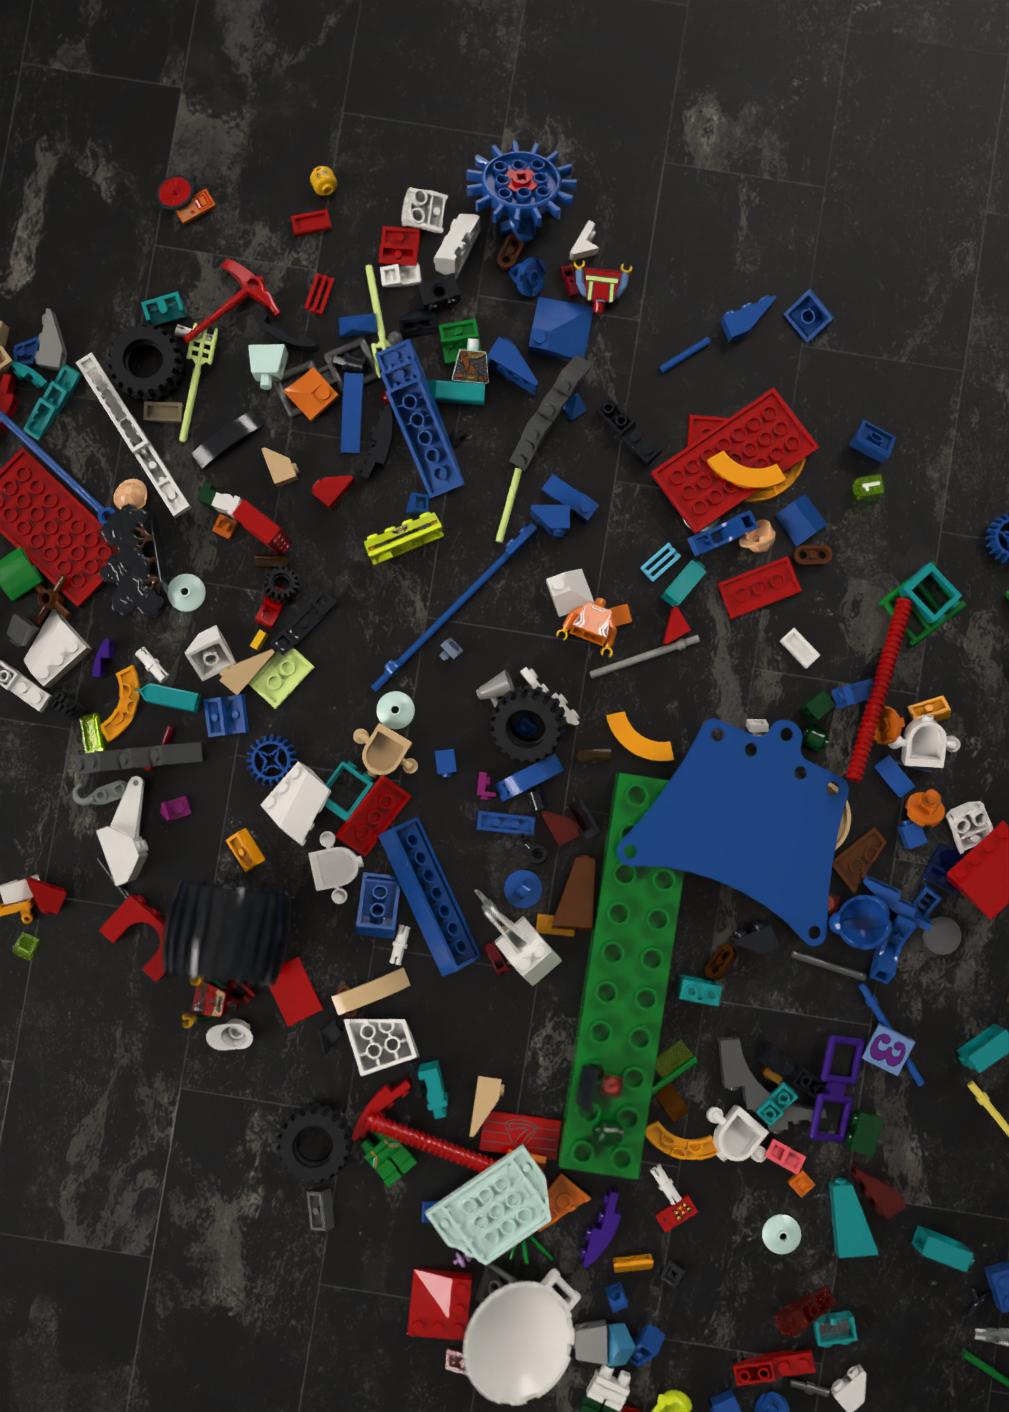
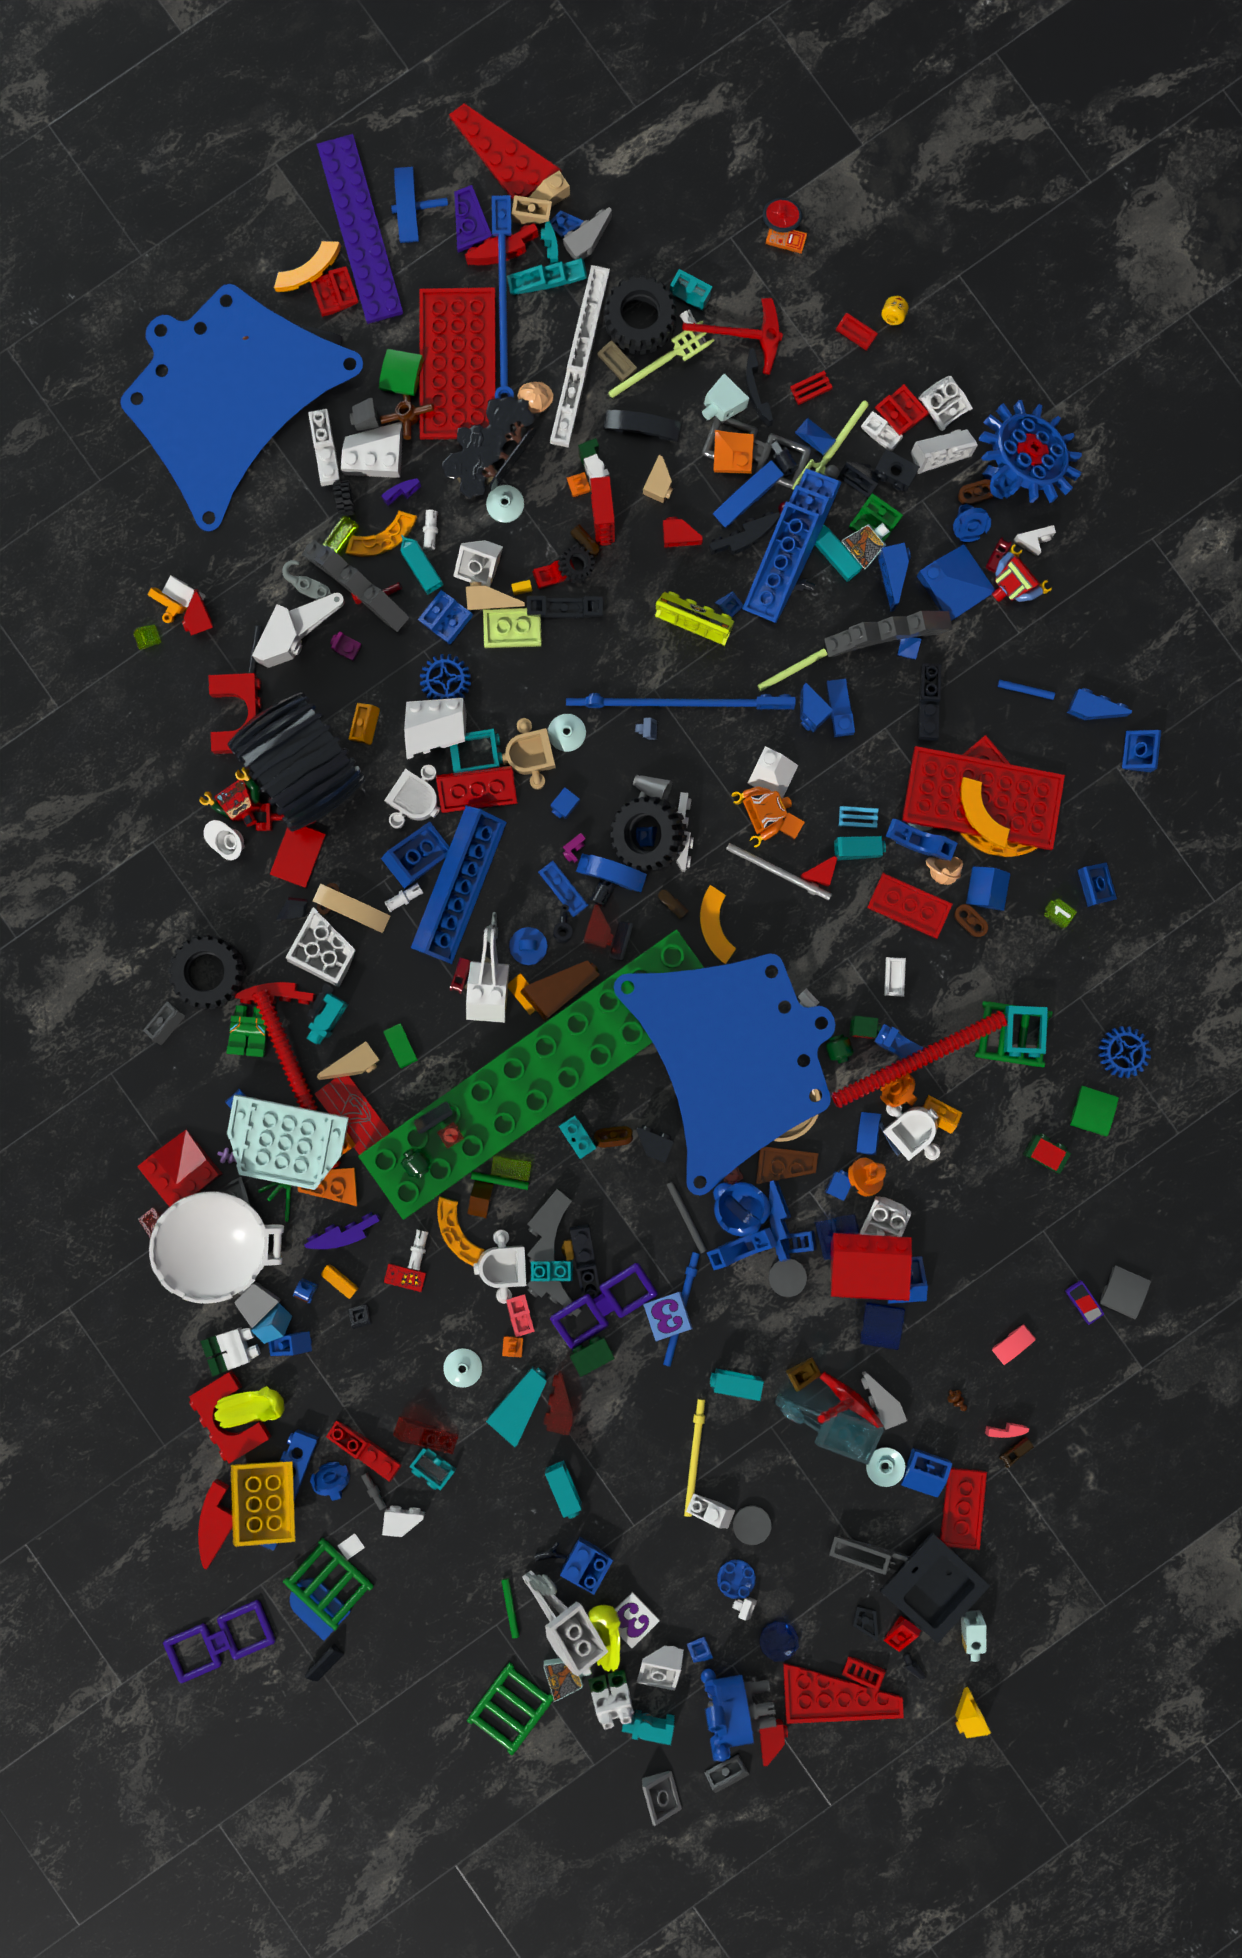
camera: 50 degrees right, 0 degrees up
(505, 1052) = (400, 1045): none -> green slope

